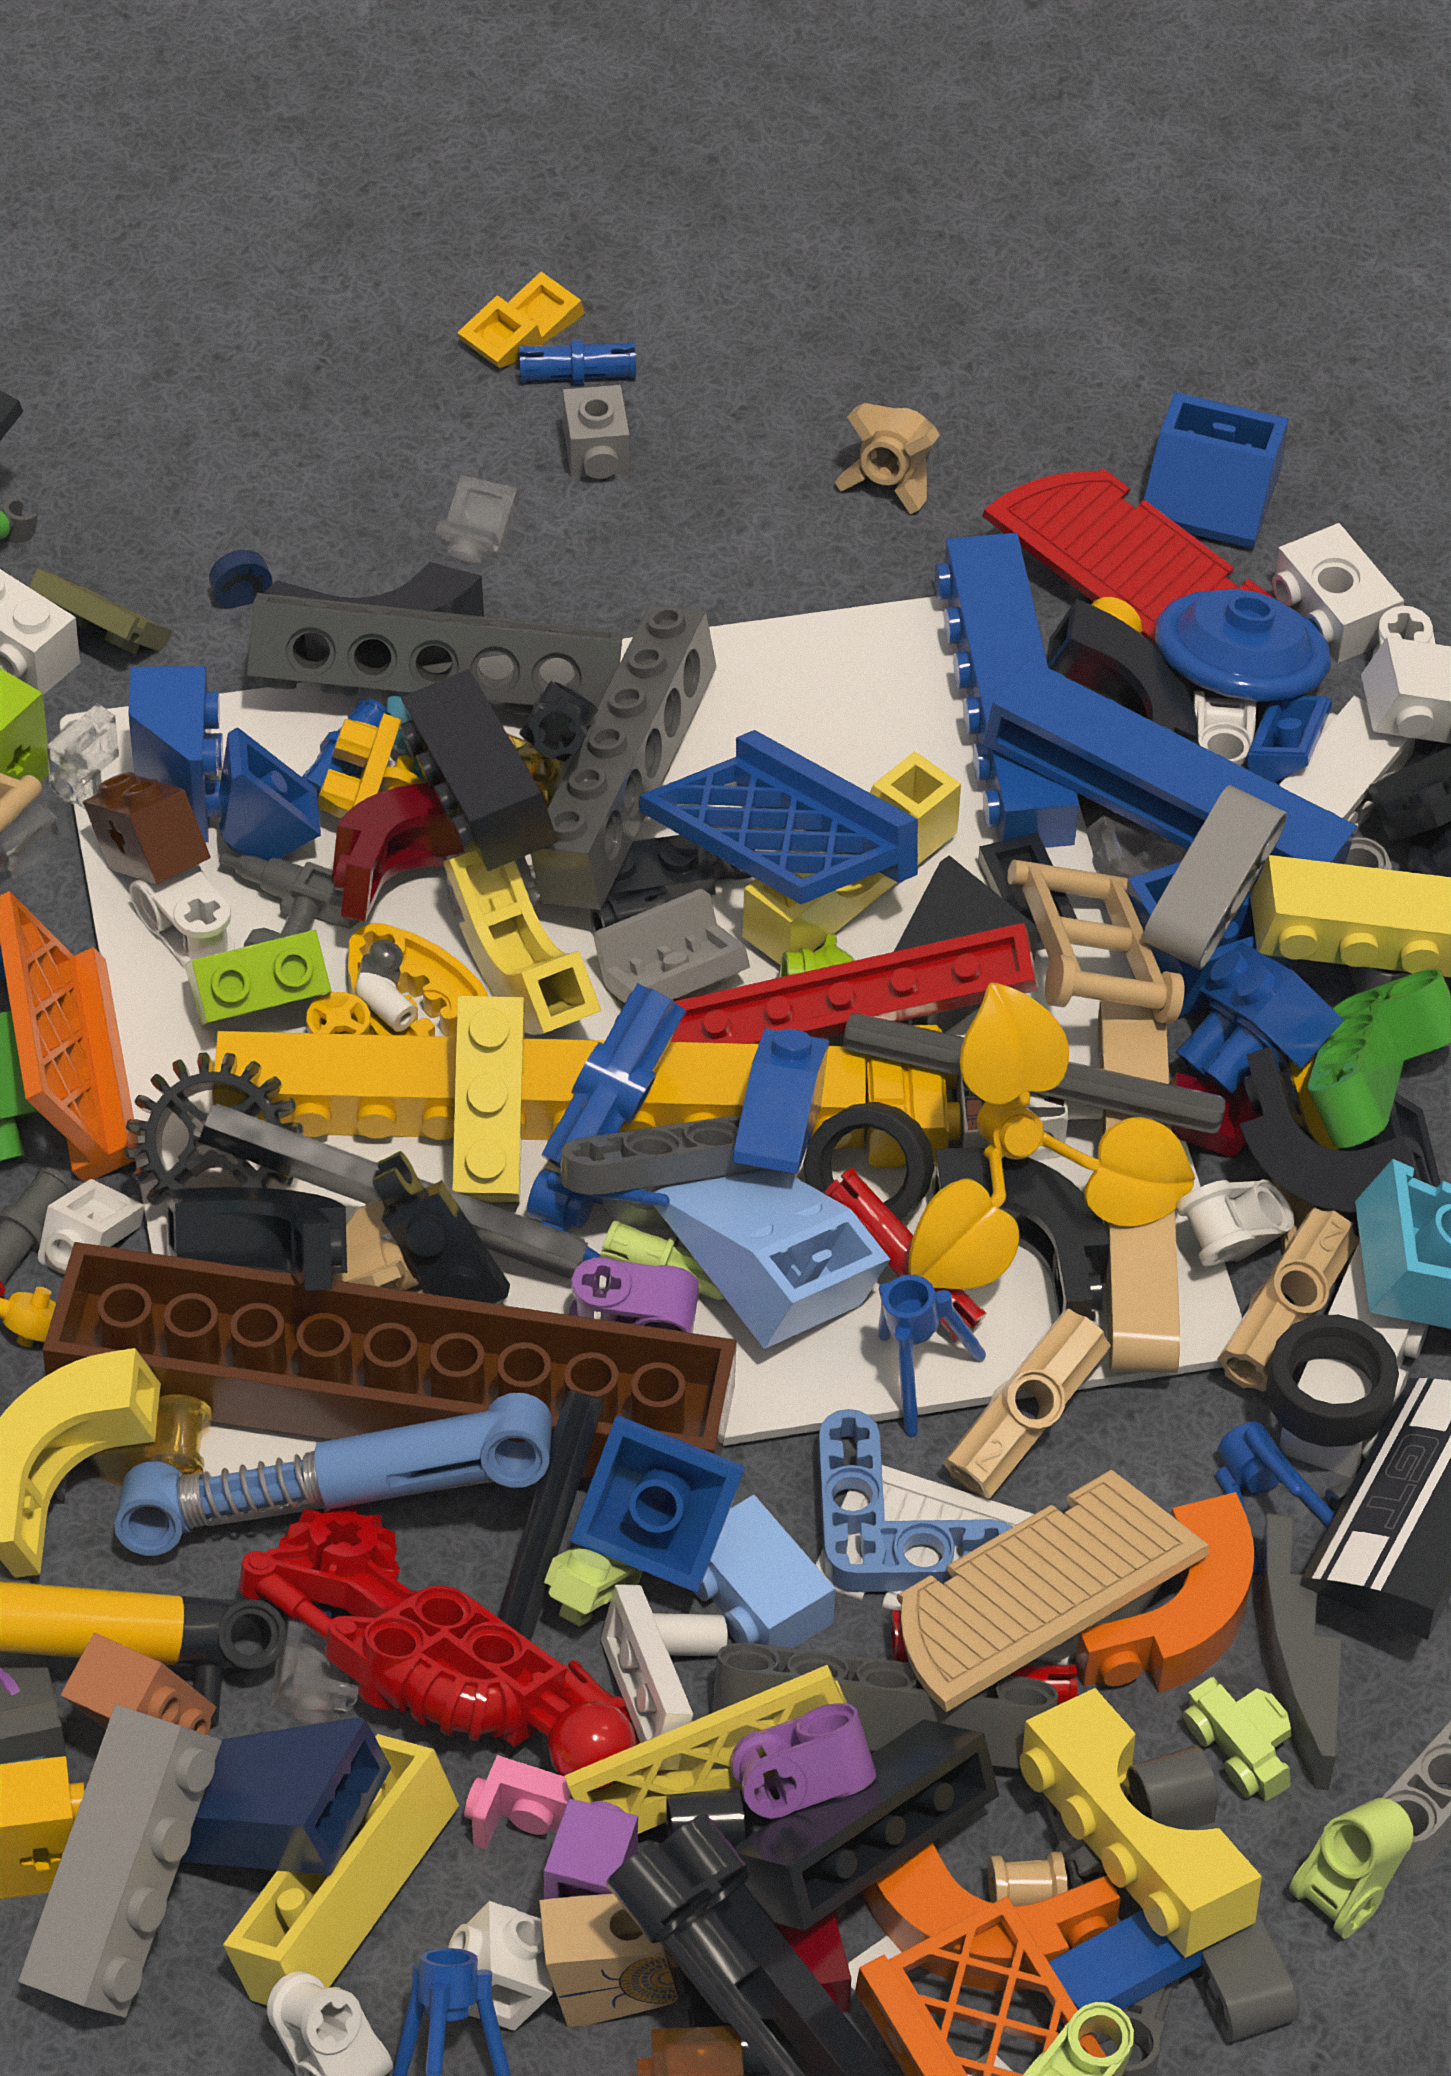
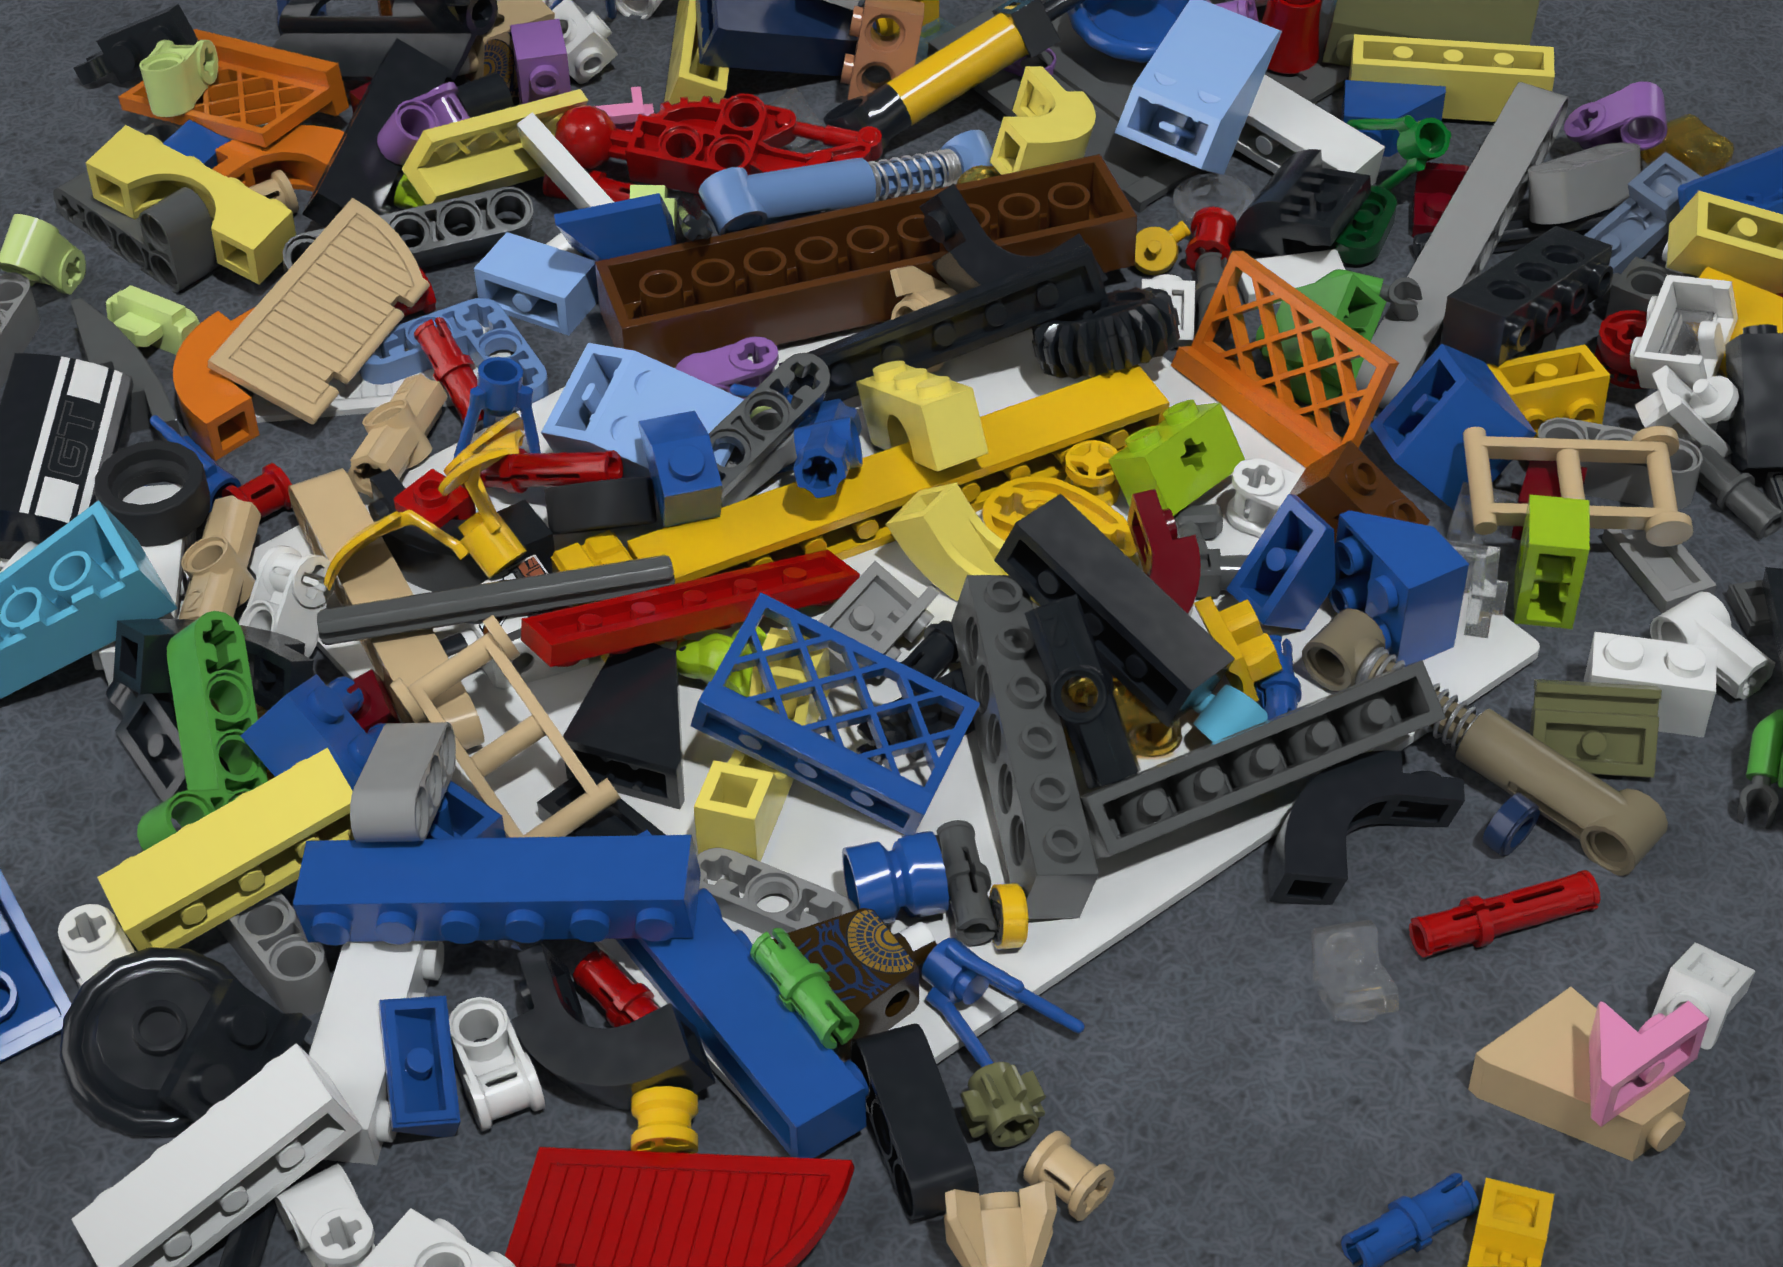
camera: 155 degrees right, 5 degrees down
(162, 550) = (1611, 824): none -> dark tan piece
(209, 404) = (1709, 983): none -> white bracket
(319, 526) = (1483, 919): none -> red pin
(352, 313) = (1633, 1063): none -> bright pink slope
(372, 386) = (1545, 1076): none -> tan slope
(378, 985) = (1078, 489): white arm -> none
(437, 1235) = (894, 300): black plate -> none
(596, 431) = (1320, 1128): light grey brick -> none
(730, 654) = (1010, 914): none -> yellow tile
(744, 698) = (967, 882): none -> dark grey pin
(801, 630) = (963, 976): none -> blue plant
(812, 489) = (1074, 1177): none -> tan bush
(828, 540) = (1003, 1104): none -> olive gear
(830, 712) = (904, 878): none -> blue wheel
(891, 657) = (868, 967): none -> torso
(907, 550) = (913, 1119): none -> black beam
(907, 736) = (758, 880): none -> light grey beam
(923, 1474) = (450, 365): none -> red pin
(953, 610) = (804, 988): none -> bright green pin
(1044, 1237) = (429, 503): none -> red bracket
(1202, 1416) = (266, 491): none -> red bush
(1242, 645) = (511, 1150): blue piece -> none

